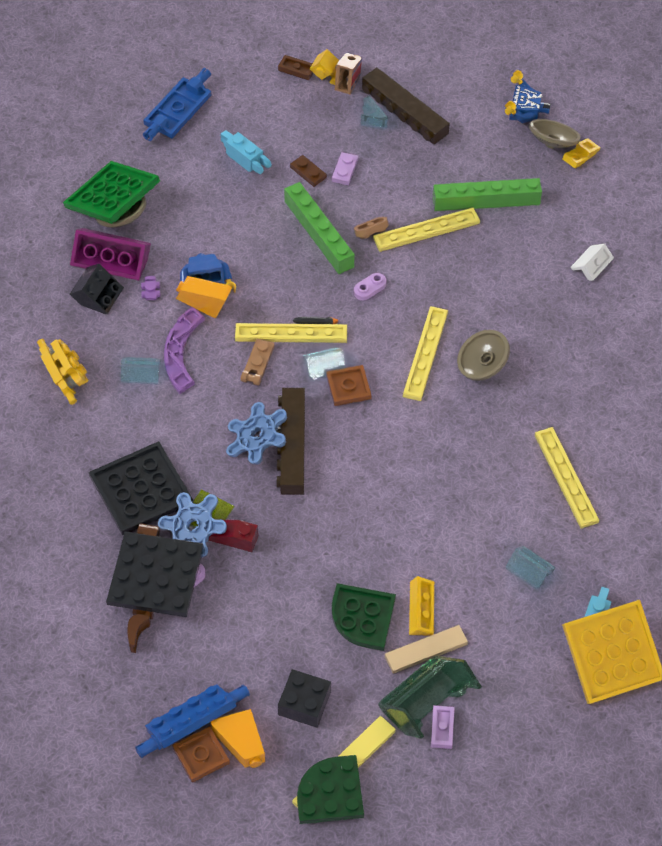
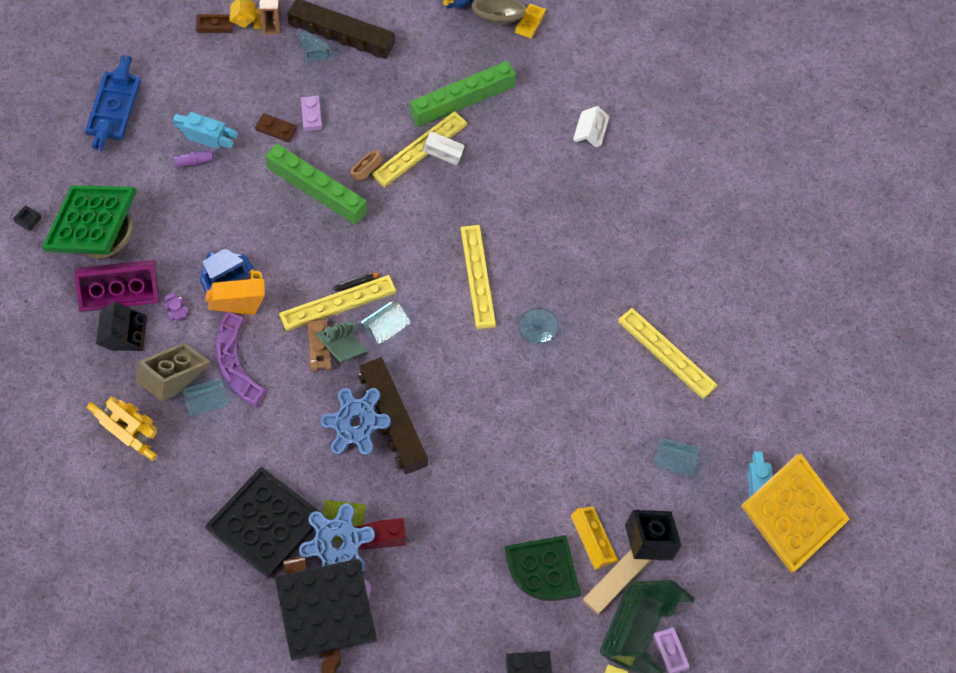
camera: 25 degrees left, 5 degrees up
(62, 175) = (27, 218): none -> black plate
(120, 337) = (170, 370): none -> dark tan slope
(224, 172) = (193, 158): none -> medium lavender pin
(277, 363) = (341, 341): none -> sand green hinge
(348, 385) = (420, 337): dark orange plate -> none
(370, 285) = (393, 226): lavender plate -> none
(447, 234) = (443, 148): none -> white panel
(458, 405) = (538, 318): none -> clear light blue dish
(472, 621) = (653, 535): none -> black brick
(483, 355) = (528, 255): dark tan dish -> none

